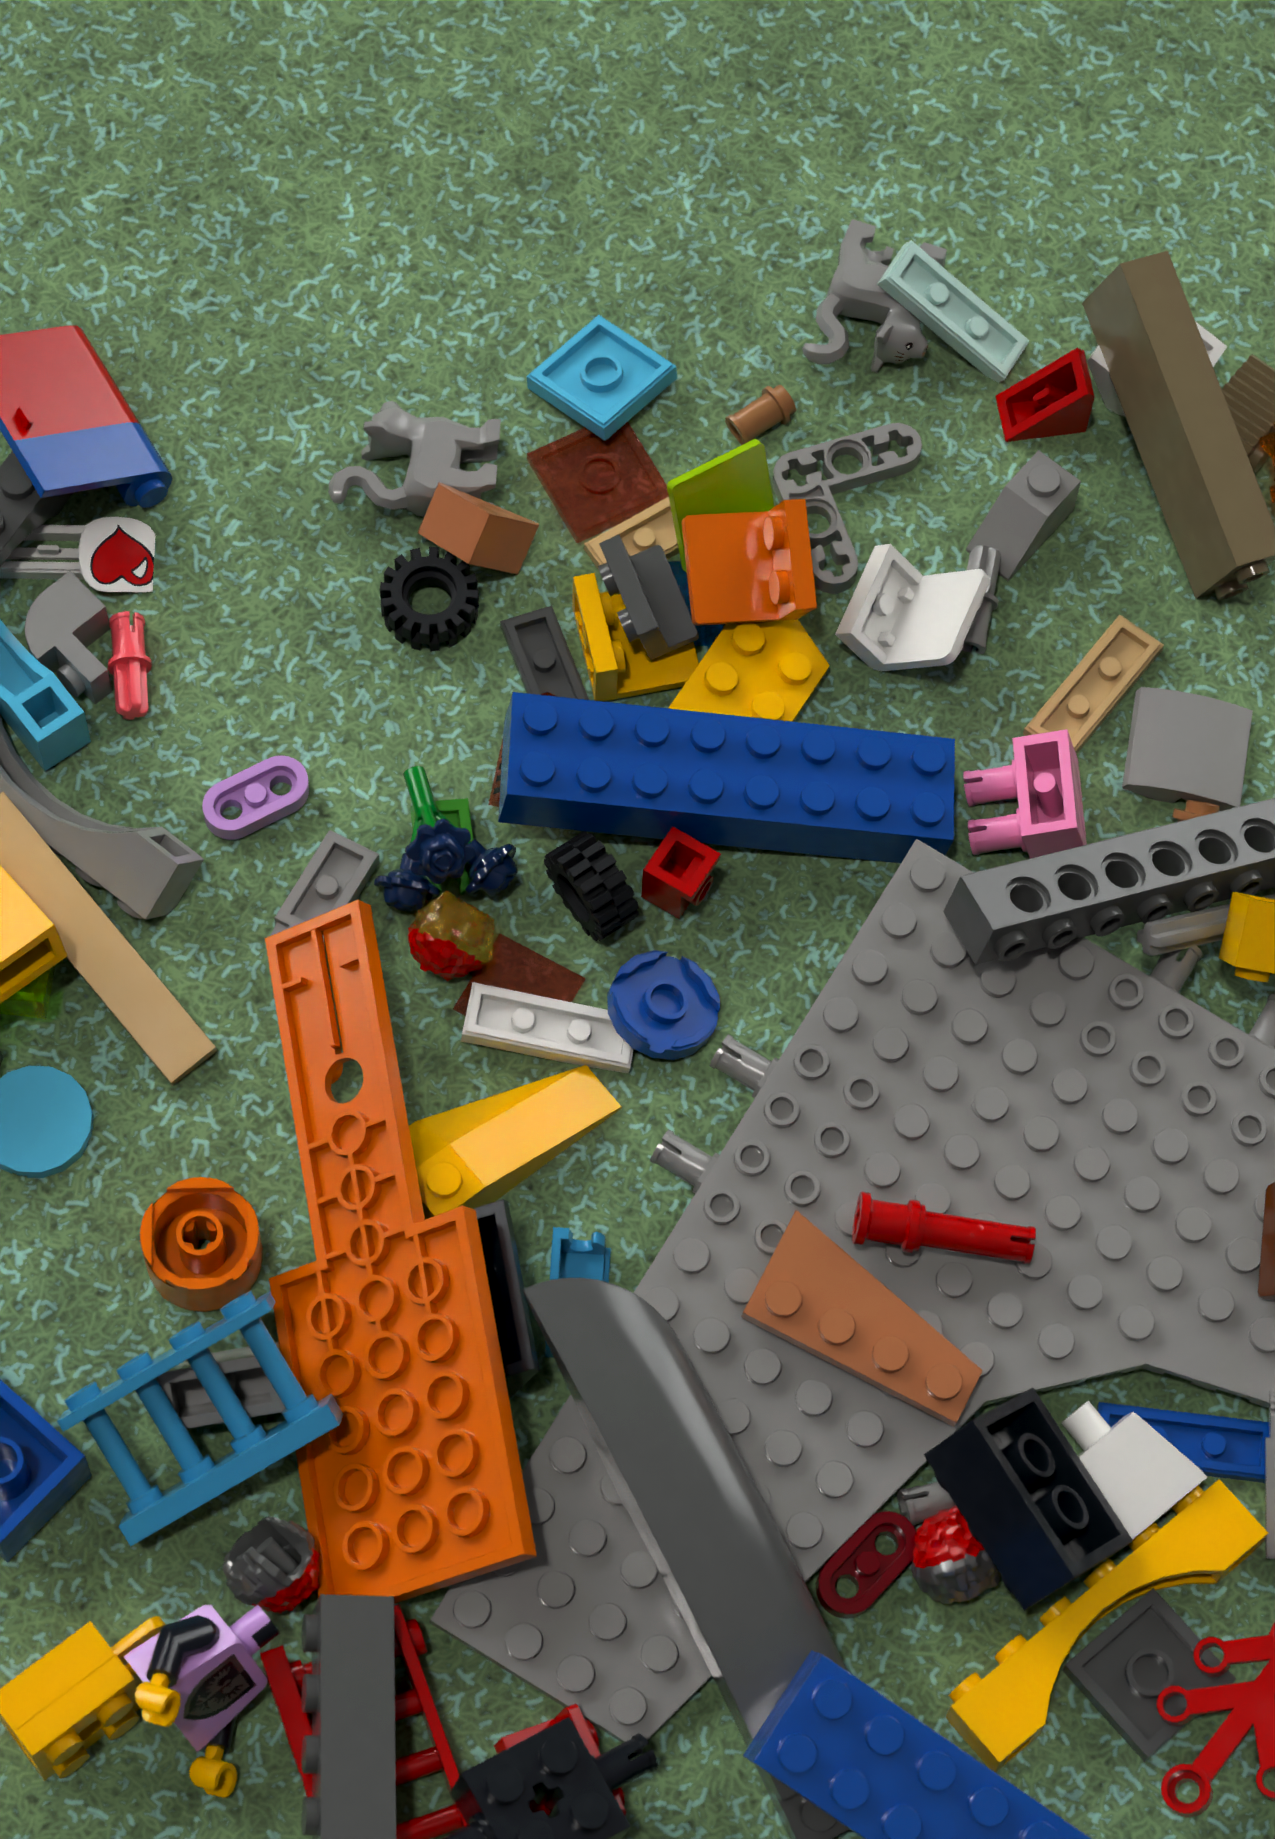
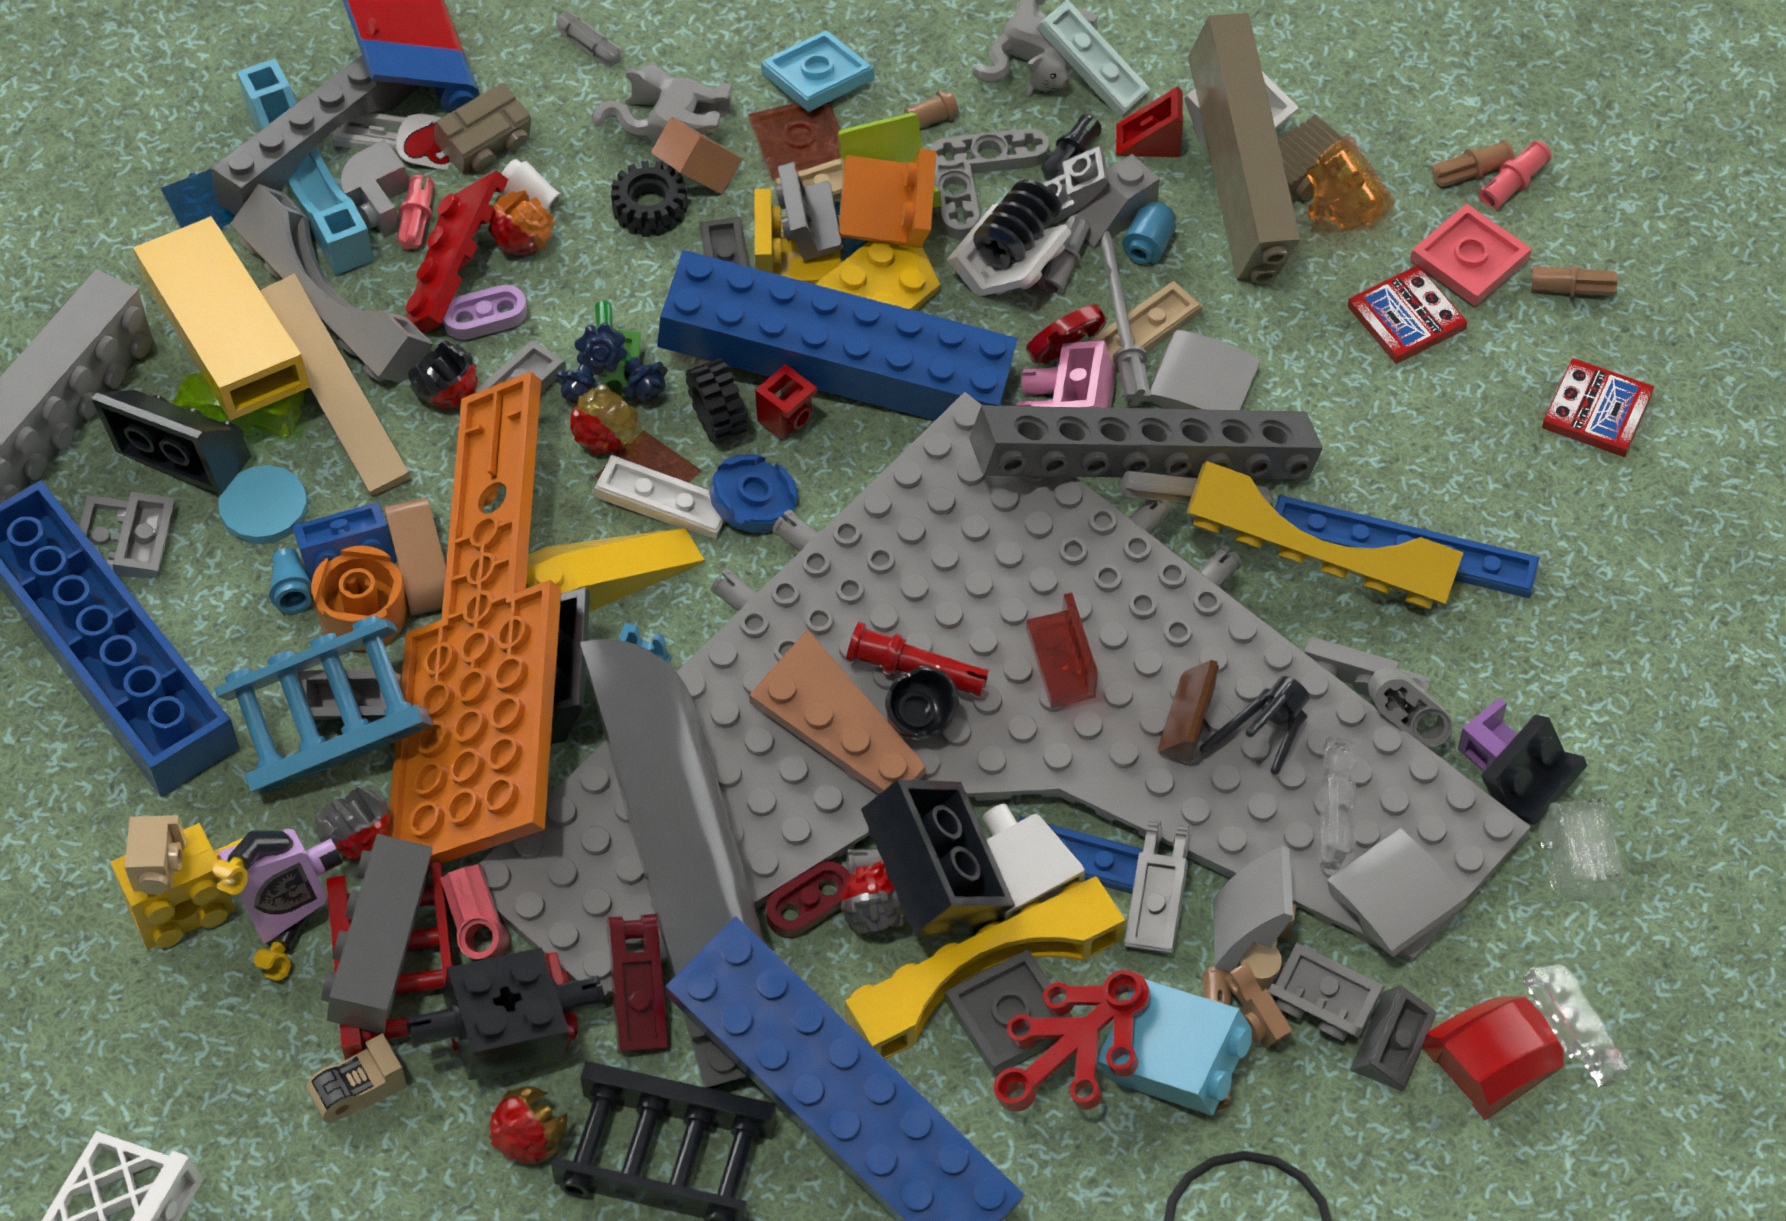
camera: 15 degrees right, 10 degrees down
(49, 1685) = (154, 852): none -> tan brick
(101, 1233) = (289, 582): none -> dark azure cone
(153, 1155) = (332, 533): none -> blue bracket
(191, 531) = (483, 129): none -> dark tan brick
(193, 718) = (451, 249): none -> red wing
(230, 903) = (444, 376): none -> black piece
(259, 1163) = (418, 554): none -> medium nougat beam
(267, 604) = (525, 177): none -> white cone
(274, 665) = (520, 224): none -> piece
(292, 371) = (588, 38): none -> light grey axle
(456, 1663) = (473, 909): none -> coral piece
(686, 1727) = (637, 985): none -> dark red plate
(917, 573) = (1016, 223): none -> black piece
(949, 443) = (1071, 145): none -> black axle
(964, 1291) = (921, 703): none -> black hair
(971, 507) = (1081, 182): none -> light grey slope
(1012, 721) = (1068, 329): none -> red tile
(1077, 552) = (1149, 233): none -> dark azure brick
(1094, 739) = (1130, 357): none -> light grey piece
(1122, 1189) = (1063, 655): none -> clear red panel

